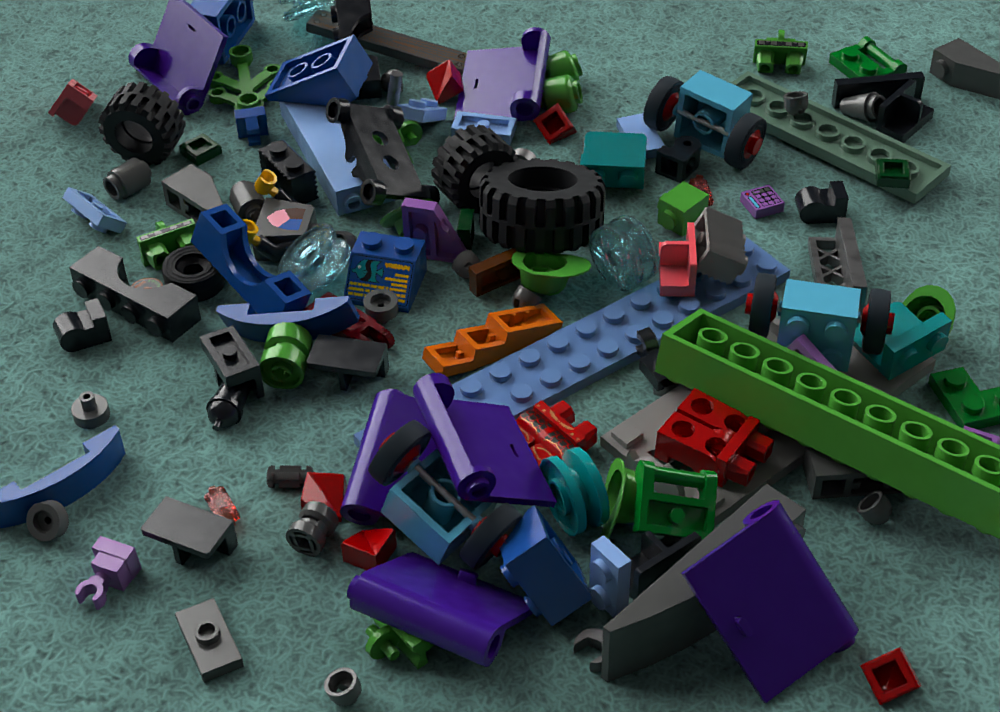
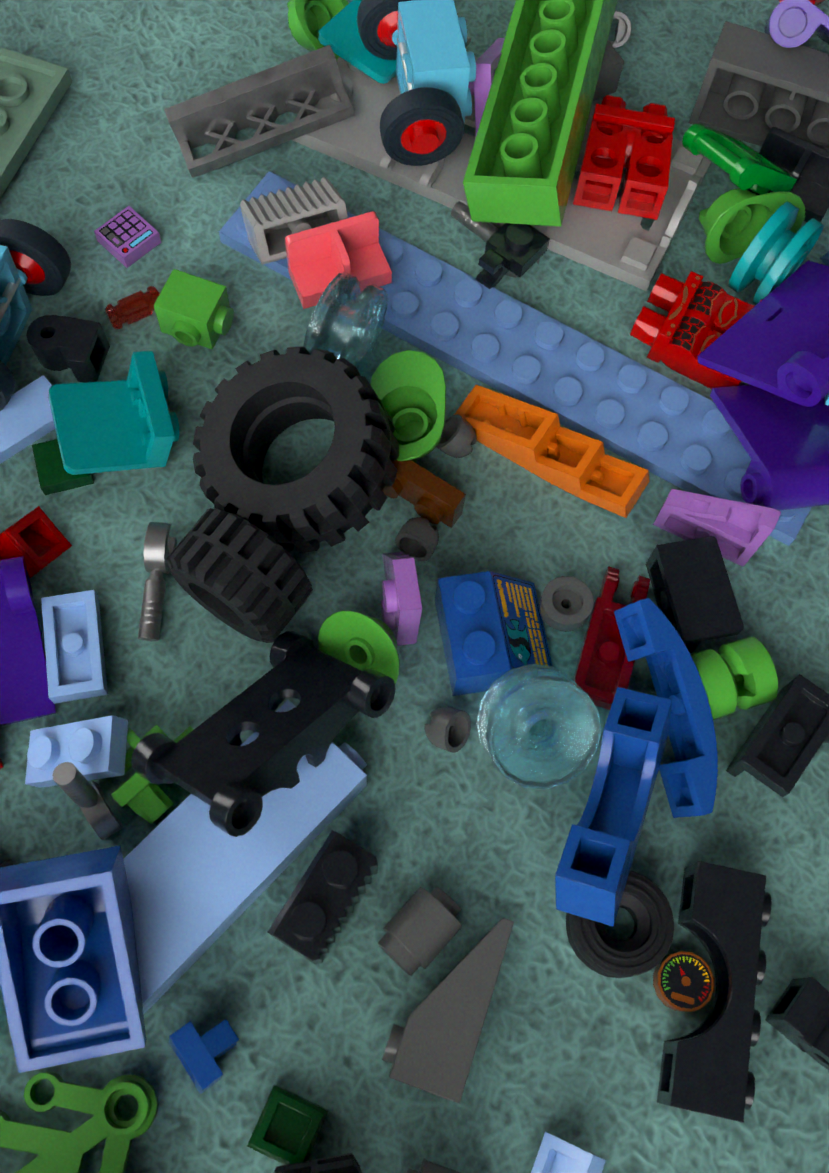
camera: 120 degrees left, 25 degrees up
(160, 243) = (601, 1019): bright green hips -> none
(279, 221) = (465, 828): torso -> none
(386, 374) = (735, 524): none -> medium lavender wing
(466, 227) = (355, 561): dark green tile -> none
(822, 205) = (118, 159): black leg -> none
(892, 173) = (38, 91): dark green tile -> none

